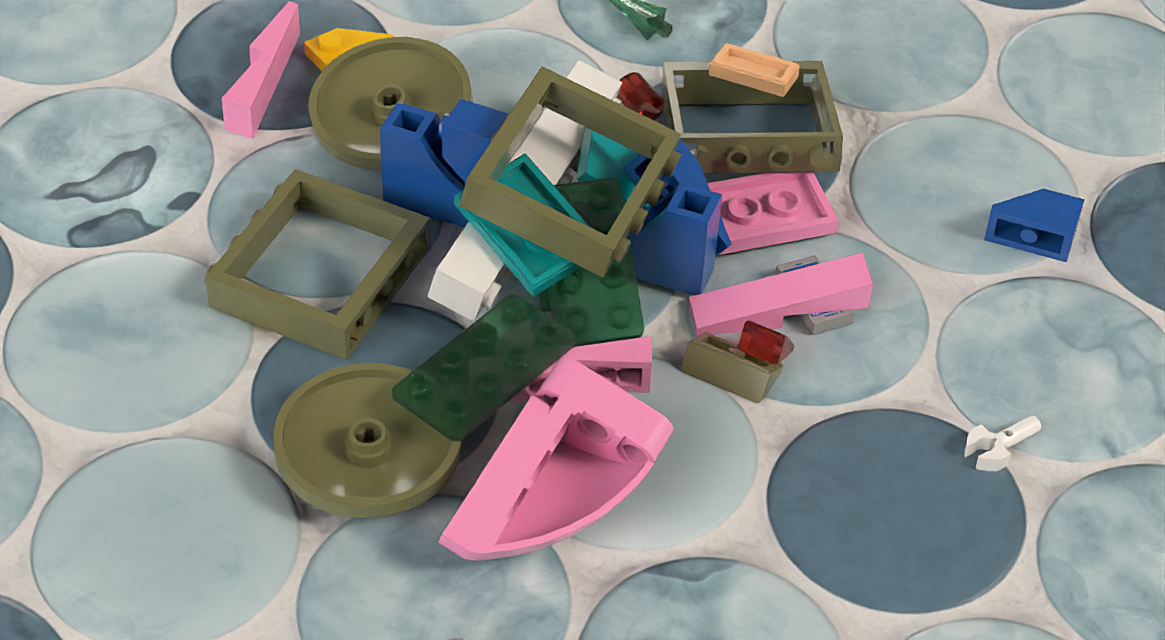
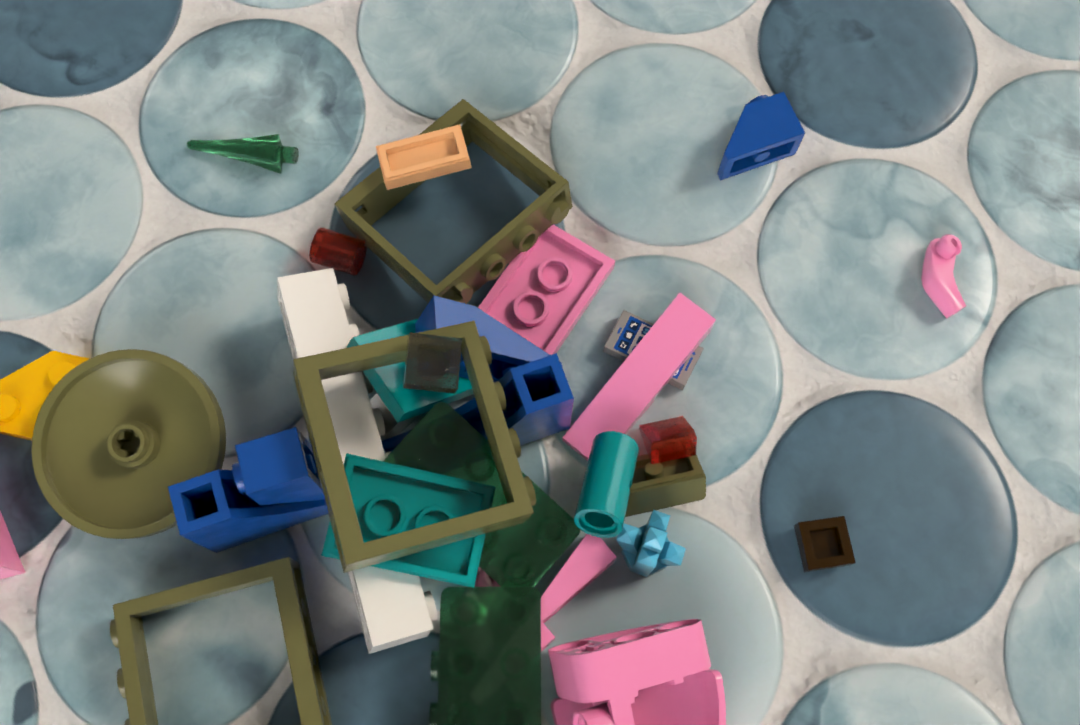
camera: 40 degrees left, 25 degrees up
(627, 124) = (432, 363): none -> clear smoke plate
(683, 379) = (648, 548): none -> medium azure rock
(688, 318) = (607, 484): none -> teal pin
(819, 476) = (824, 544): none -> dark brown plate
(999, 456) = (908, 383): white bar -> none
(1104, 392) = (939, 276): none -> bright pink arm

